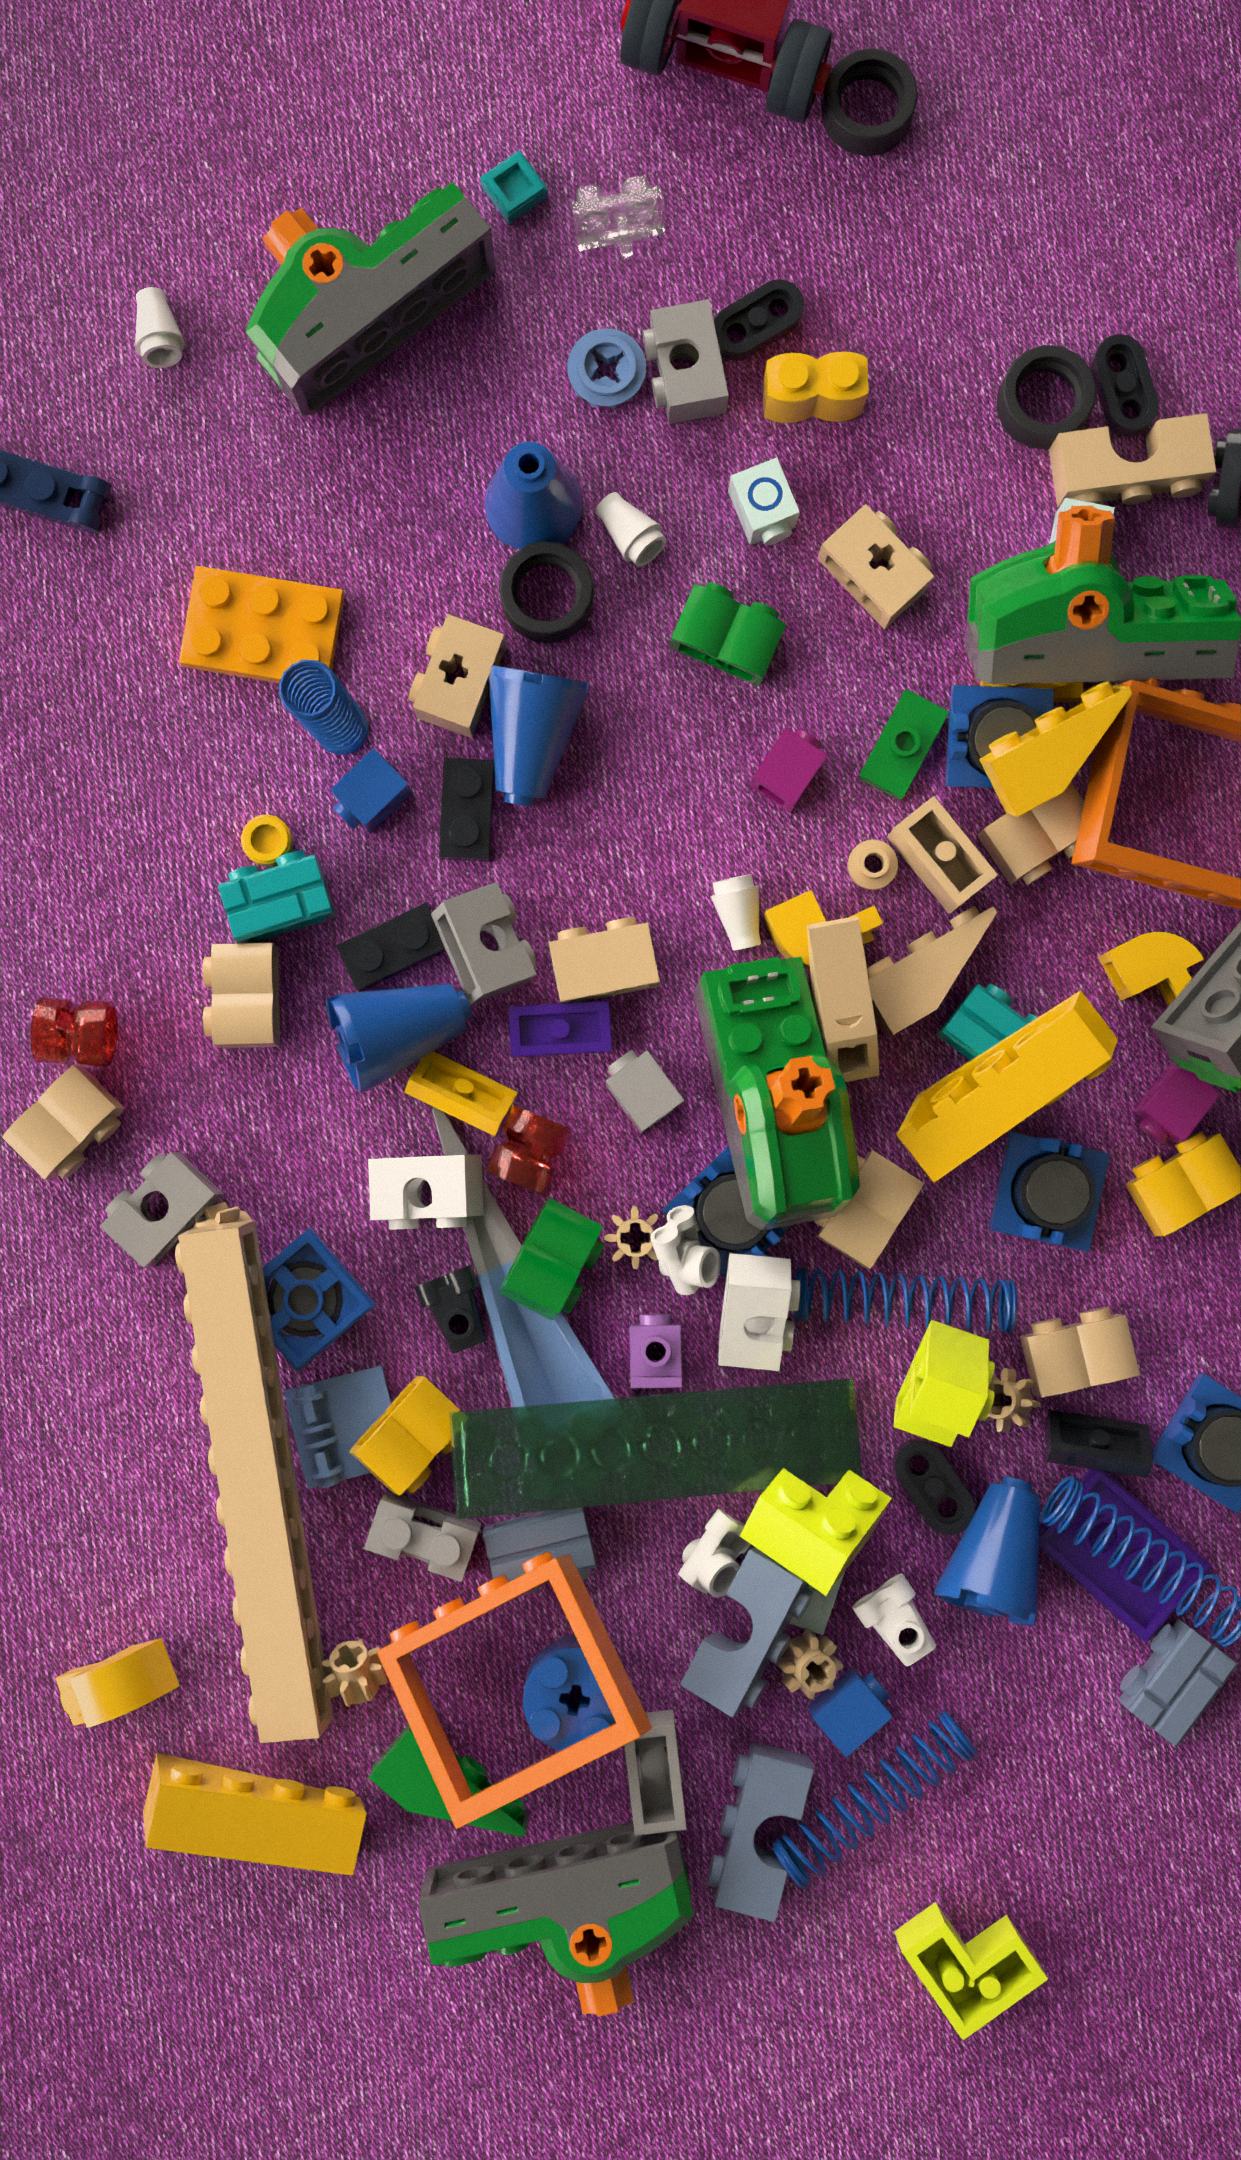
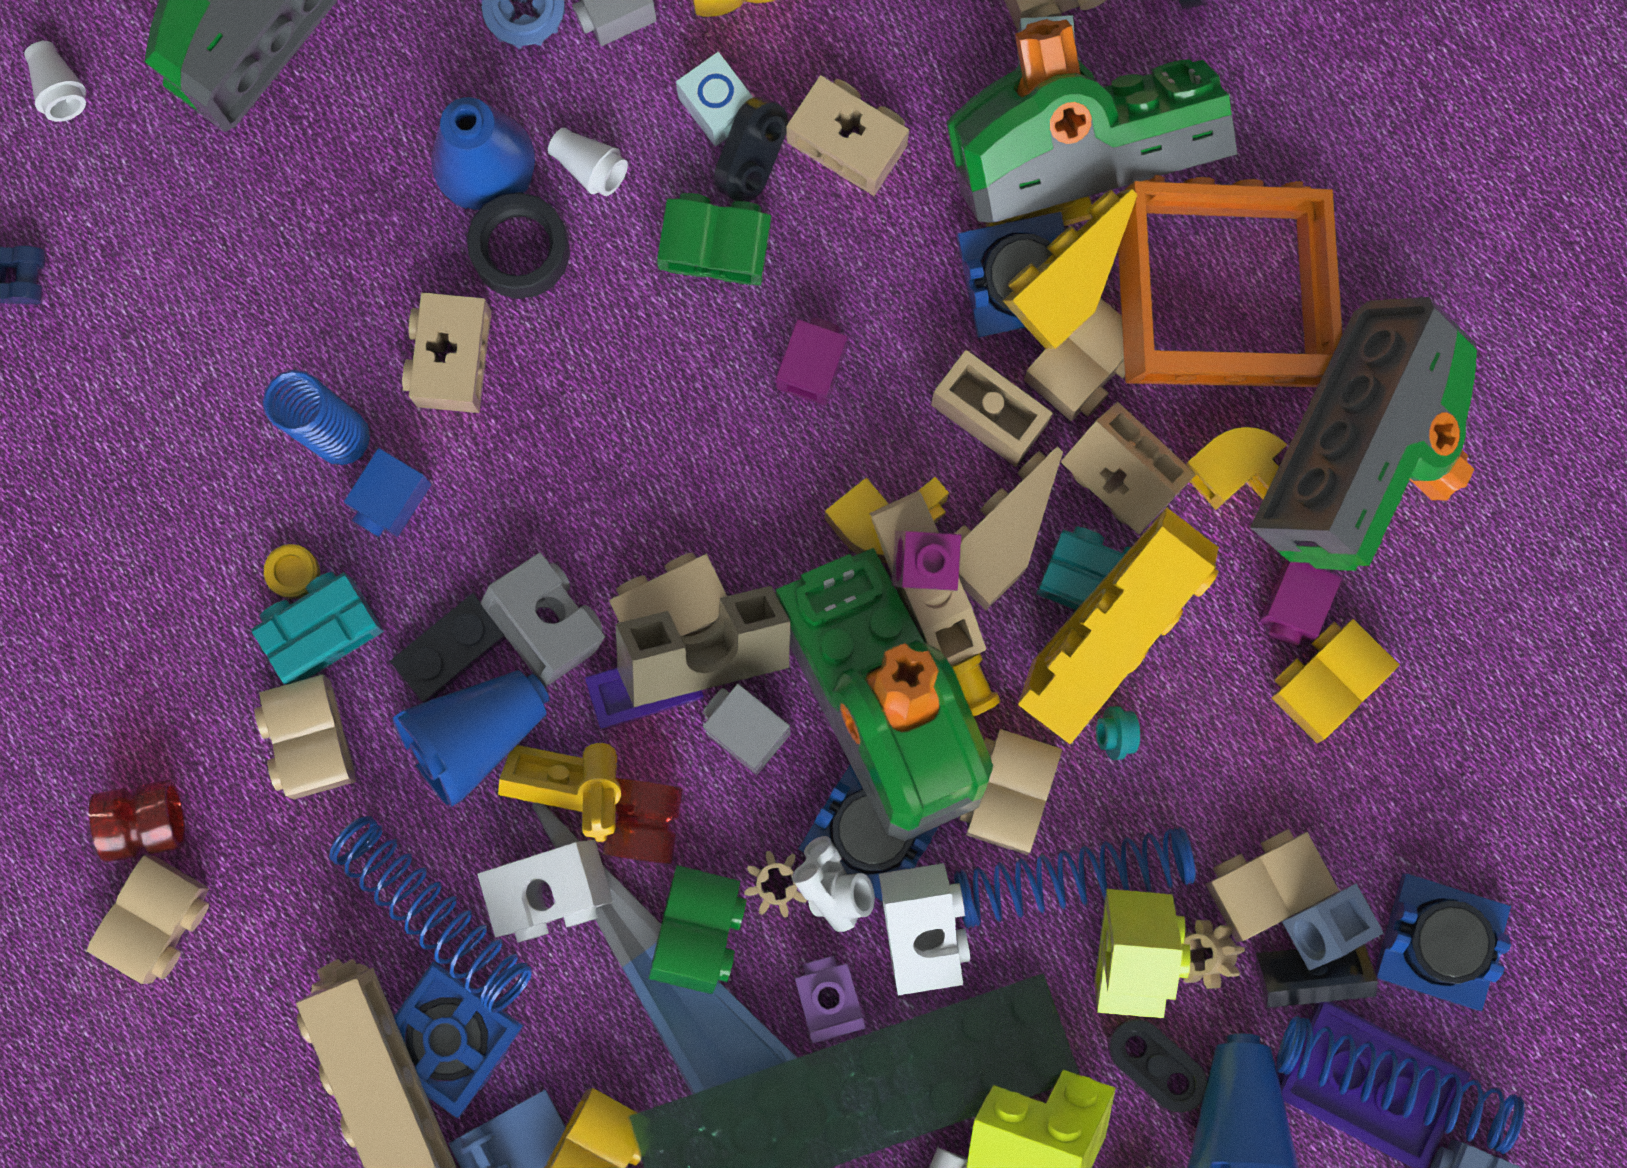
camera: 10 degrees left, 5 degrees down
(187, 1194) = (253, 1013): light grey brick -> none
(258, 624) = (228, 352): light orange plate -> none
(371, 1255) = (494, 982): none -> blue piece
(452, 1296) = (598, 997): black plate -> none
(466, 809) = (491, 487): black plate -> none
(496, 1114) = (599, 791): none -> yellow axle
(531, 729) = (536, 387): blue cone -> none
(658, 1013) = (742, 643): none -> dark tan arch
(738, 909) = (798, 518): white cone -> none
(783, 557) = (751, 149): none -> black plate
(848, 983) = (926, 560): none -> magenta brick
(861, 1106) = (975, 685): none -> yellow bush
(865, 878) = (924, 452): tan plate -> none
(903, 744) = (923, 307): green plate -> none
(978, 1180) = (1118, 732): none -> teal plate
(1051, 1192) = (1198, 725): piece -> none
(1052, 943) = (1127, 468): none -> tan brick
(1126, 1407) = (1333, 927): none -> sand blue brick

